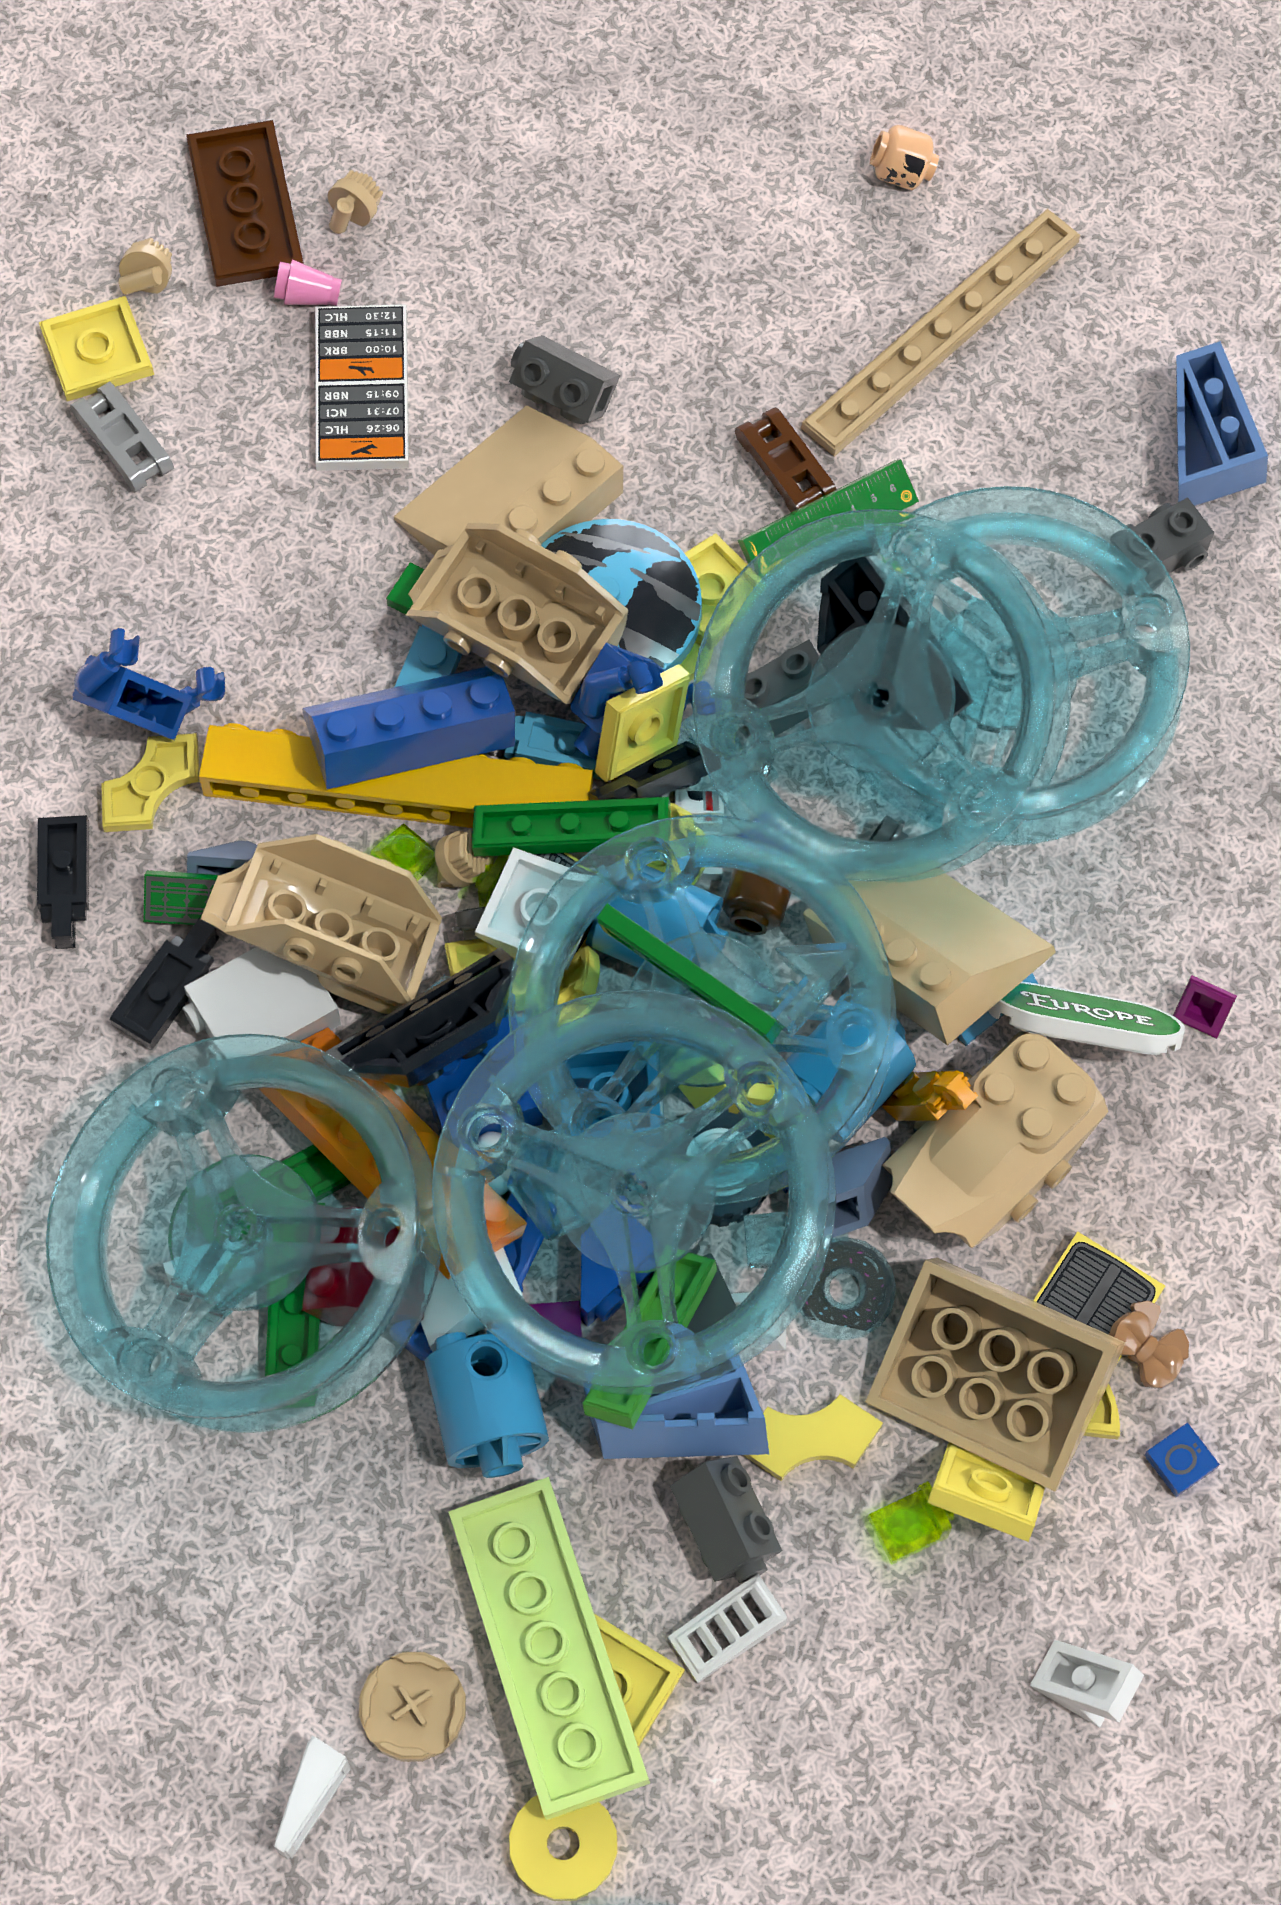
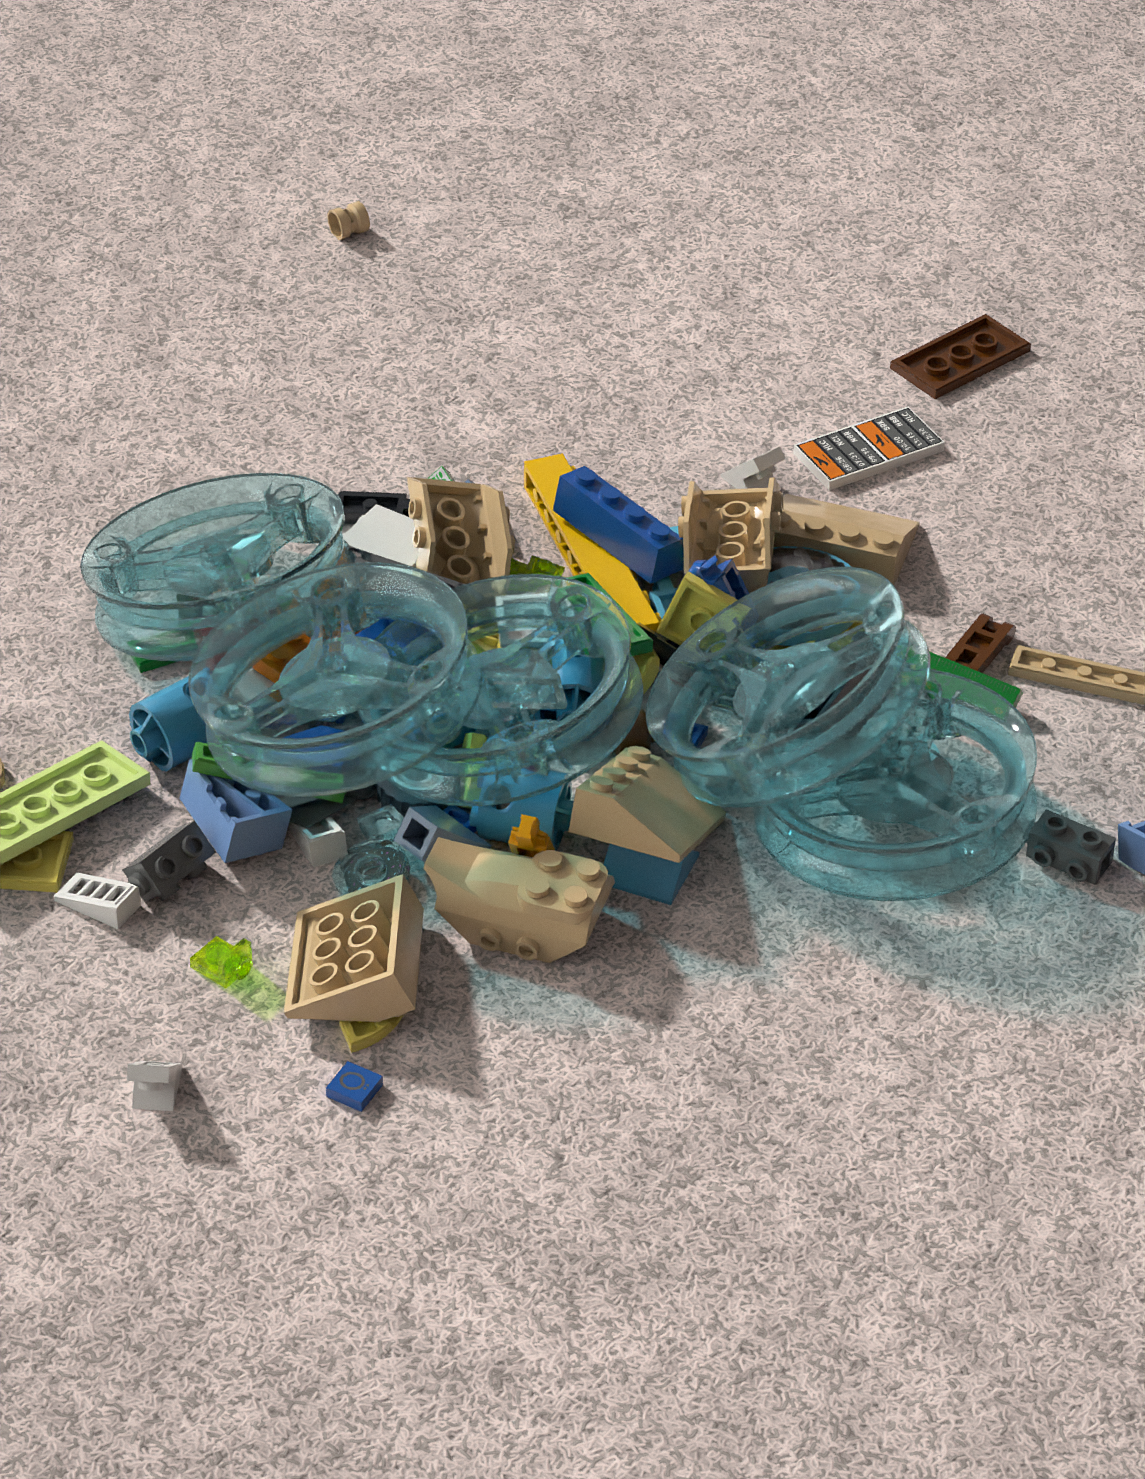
camera: 65 degrees right, 25 degrees down
(63, 875) = (421, 444): black hinge -> none
(96, 348) = (799, 335): light yellow tile -> none
(122, 436) = (745, 362): light grey plate -> none
(135, 797) = (503, 457): light yellow tile -> none
(137, 698) = (557, 413): blue torso -> none
(145, 267) = (871, 329): tan piece -> none
(305, 285) = (918, 394): bright pink cone -> none
(348, 530) = (754, 472): none -> white slope
(353, 200) = (1000, 392): tan piece -> none
(562, 378) = (946, 521): dark grey brick -> none
(686, 972) = (499, 632): green tile -> none
(834, 1433) = (248, 886): light yellow tile -> none
(986, 1493) = (258, 973): light yellow tile -> none
(1090, 1019) = (651, 913): tile -> none
(1095, 1285) = (448, 1005): tile -> none
(1157, 1360) = (429, 1024): medium nougat piece -> none
(1204, 1006) = (714, 987): magenta slope -> none

